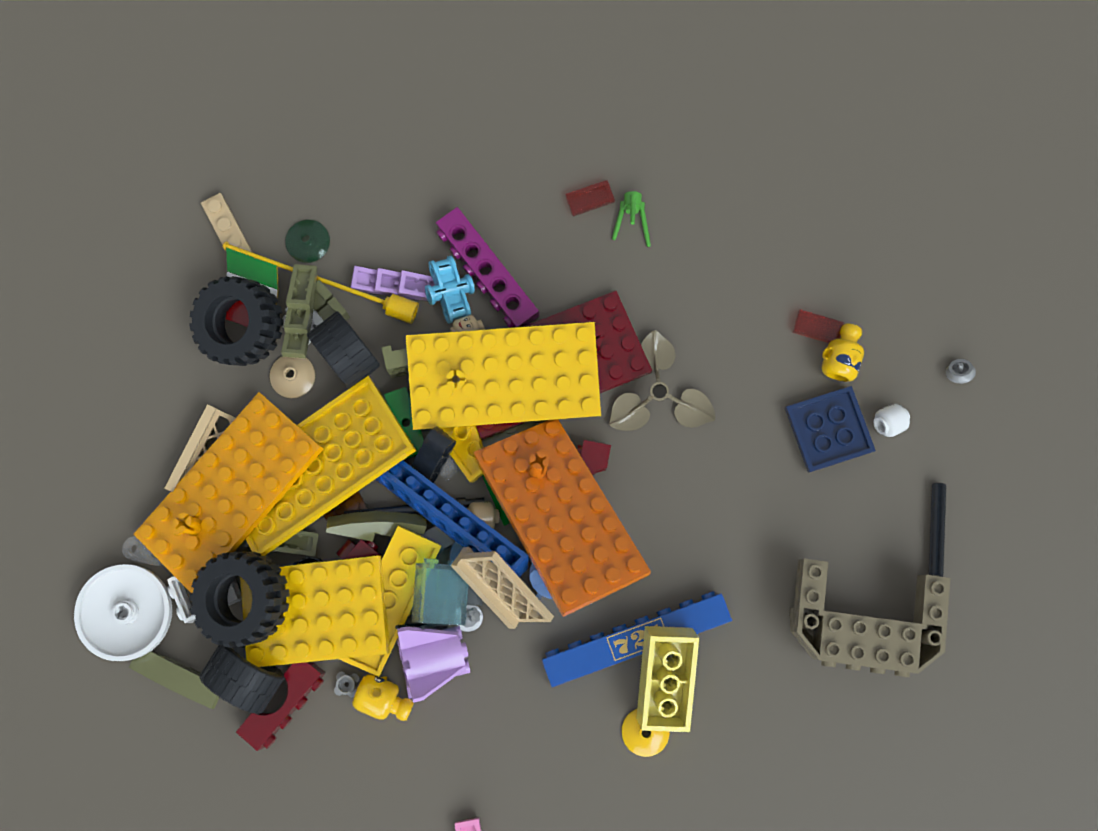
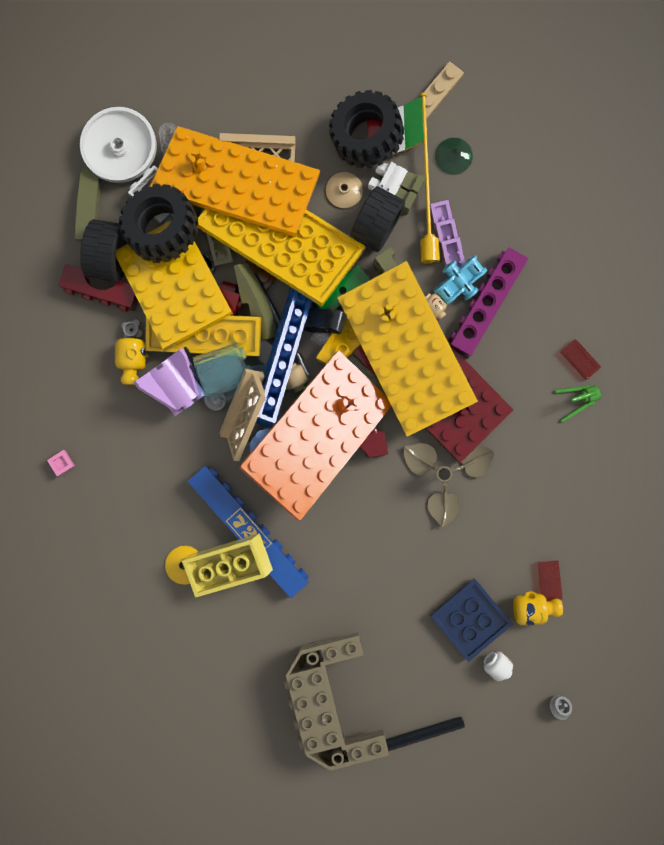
camera: 65 degrees right, 5 degrees up
(300, 311) = (394, 173): olive slope -> none

